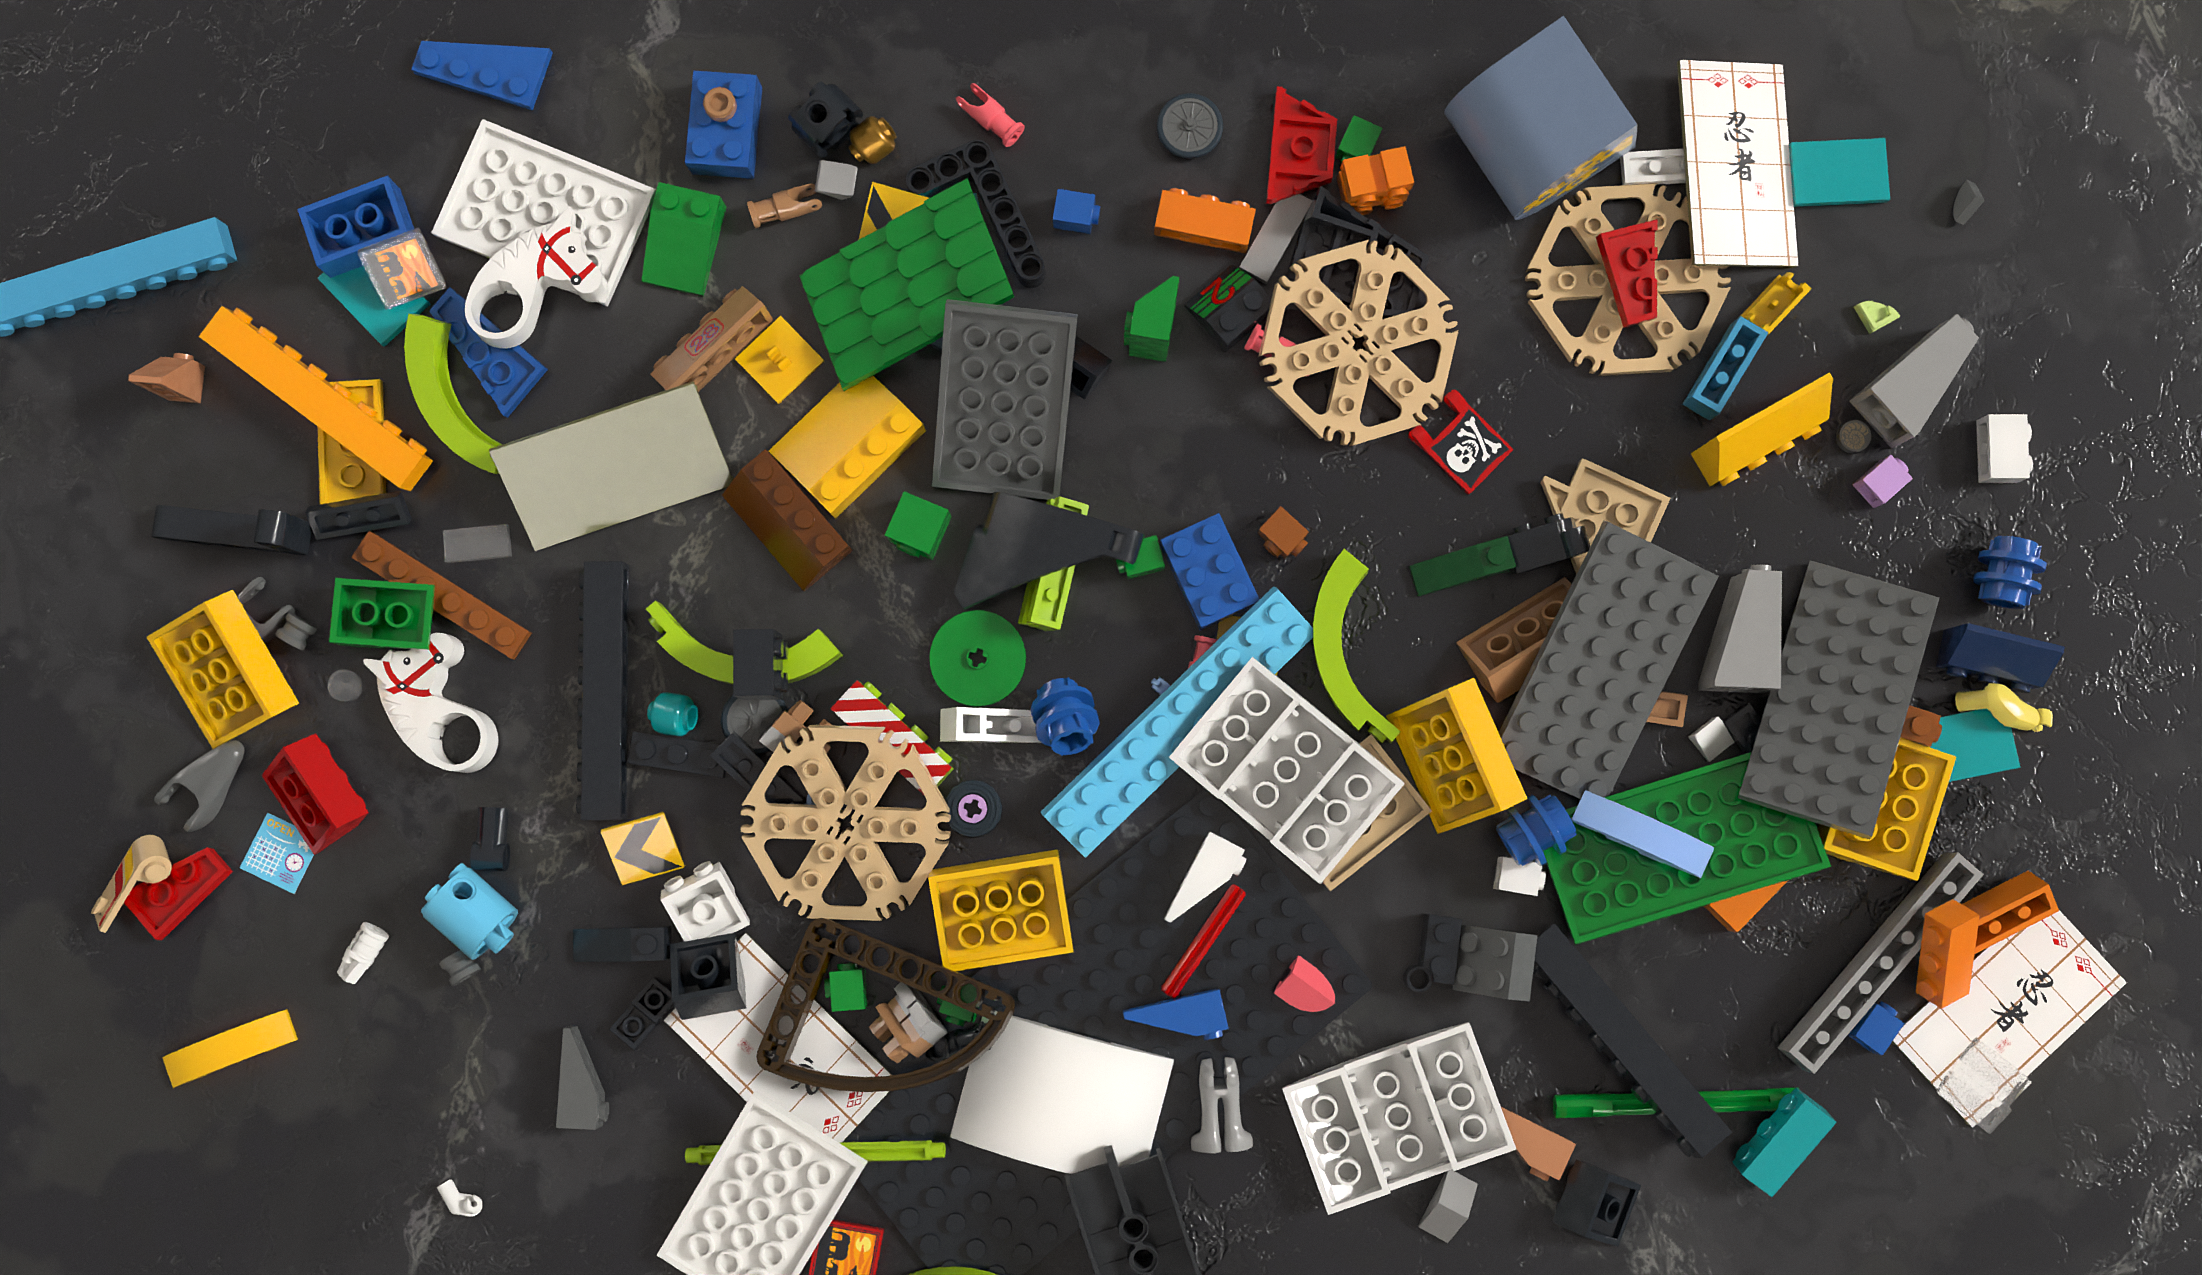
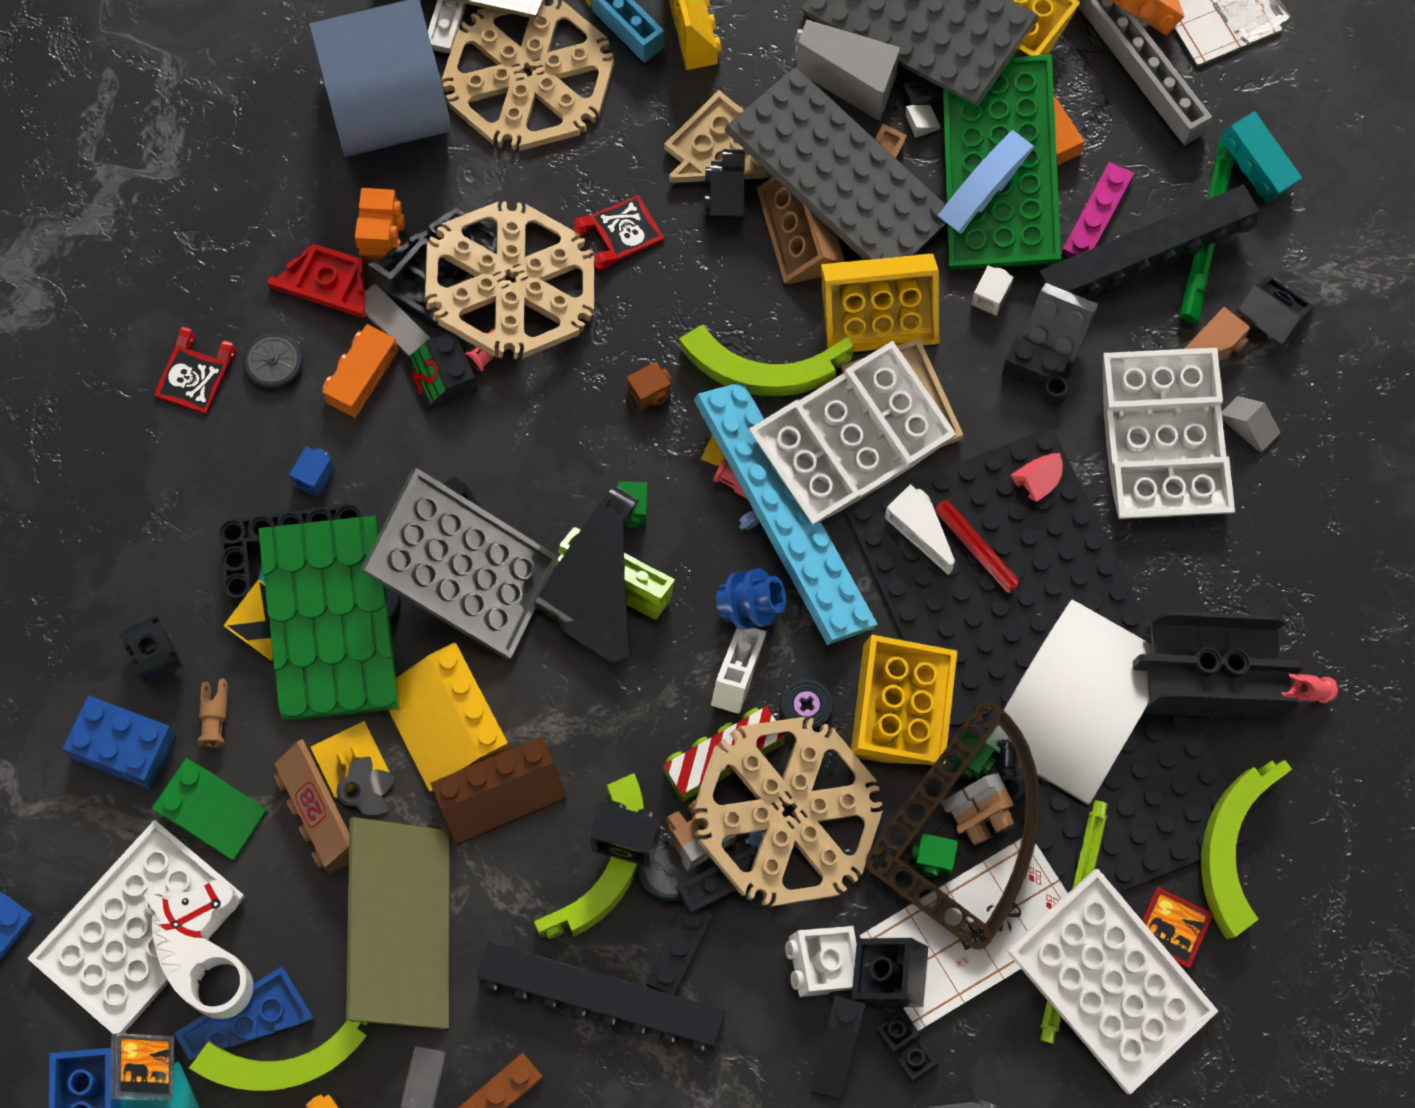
camera: 75 degrees left, 15 degrees down
(642, 848) = (756, 1001): yellow piece -> none
(672, 714) = (641, 940): teal head -> none
(720, 104) = (104, 730): medium nougat tile -> none
(753, 390) = (370, 787): none -> dark grey plate
(836, 179) = (207, 660): light grey slope -> none
(872, 140) = (183, 619): pearl gold head -> none
(918, 526) = (543, 676): green head -> none
(955, 670) = (677, 686): green piece -> none
(992, 117) = (199, 516): coral piece -> none
(1145, 49) = (193, 377): none -> flag
(1151, 322) = (439, 425): green slope -> none
(1189, 1014) = (1036, 571): blue slope -> none
(1209, 571) = (664, 451): blue brick -> none
(1212, 1089) = (1105, 572): light grey piece -> none
(1358, 139) = (338, 233): green brick -> none
(1463, 566) = (723, 257): dark green slope -> none
(1536, 830) = (960, 257): blue piece -> none
(1630, 267) = (524, 63): red wing -> none
(1657, 970) = (1098, 210): none -> dark pink plate
(1877, 1028) = (1190, 67): blue brick -> none

